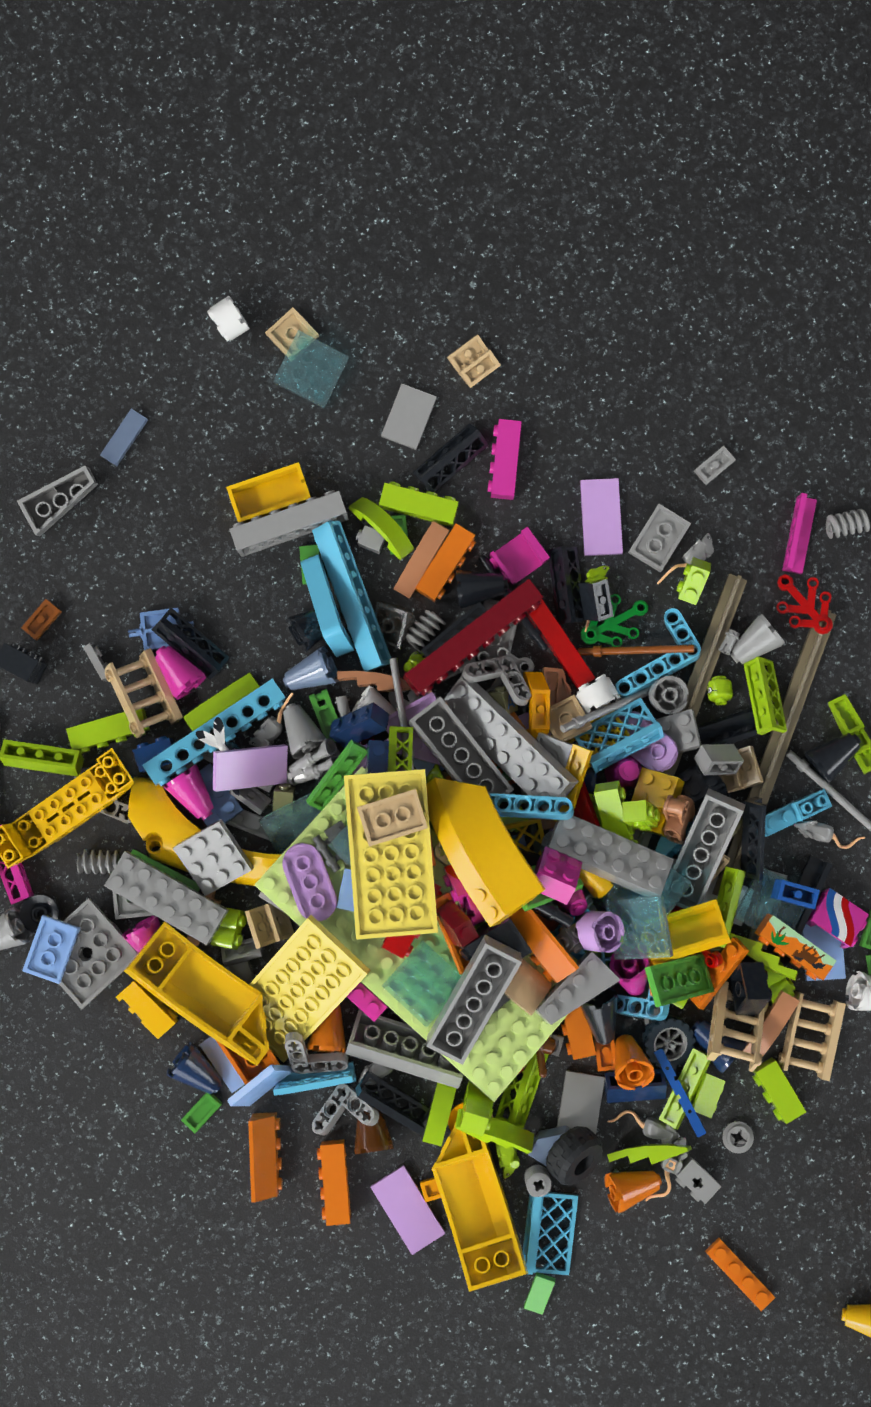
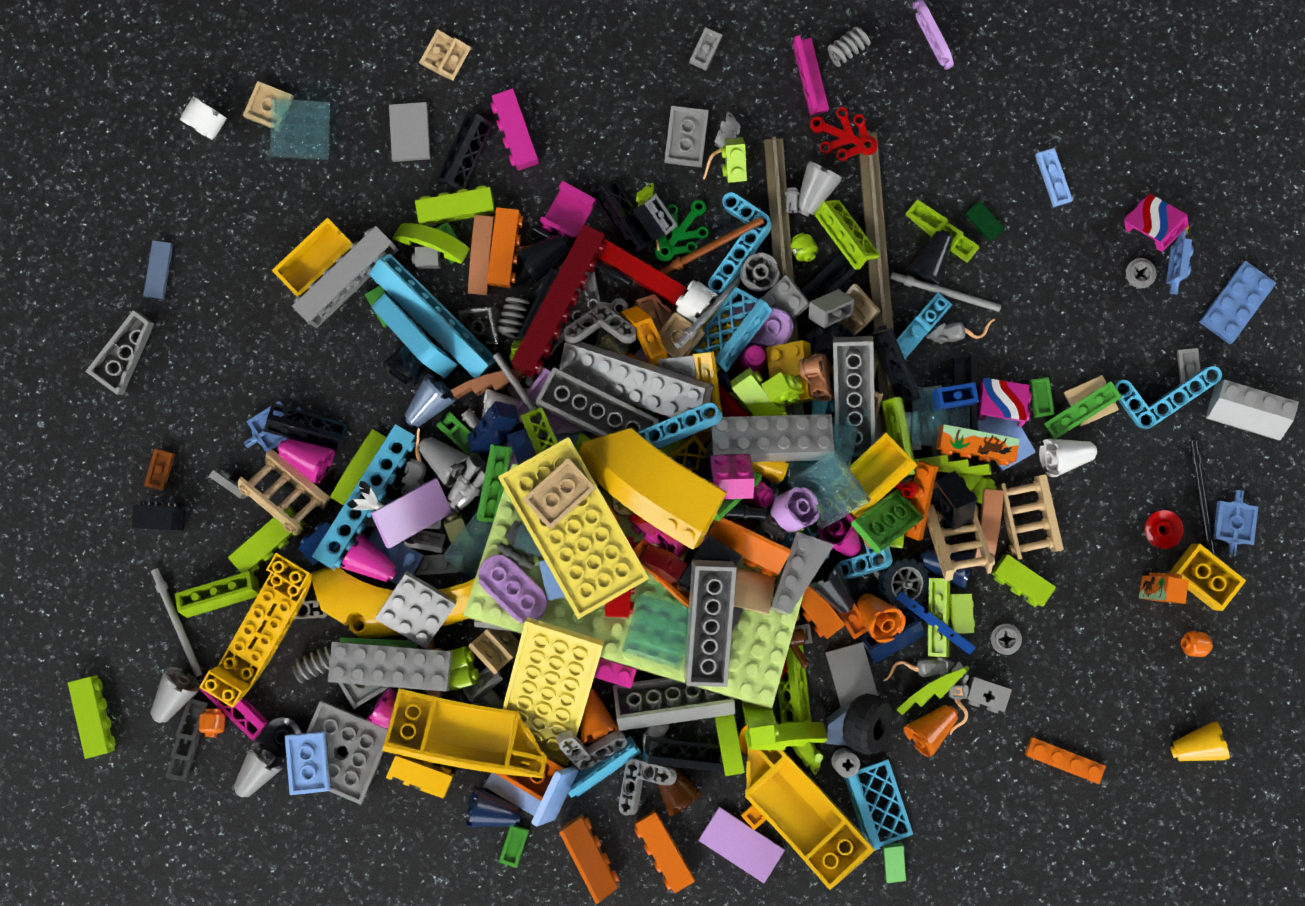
camera: 25 degrees left, 0 degrees up
(601, 517) = (625, 142): lavender tile -> none

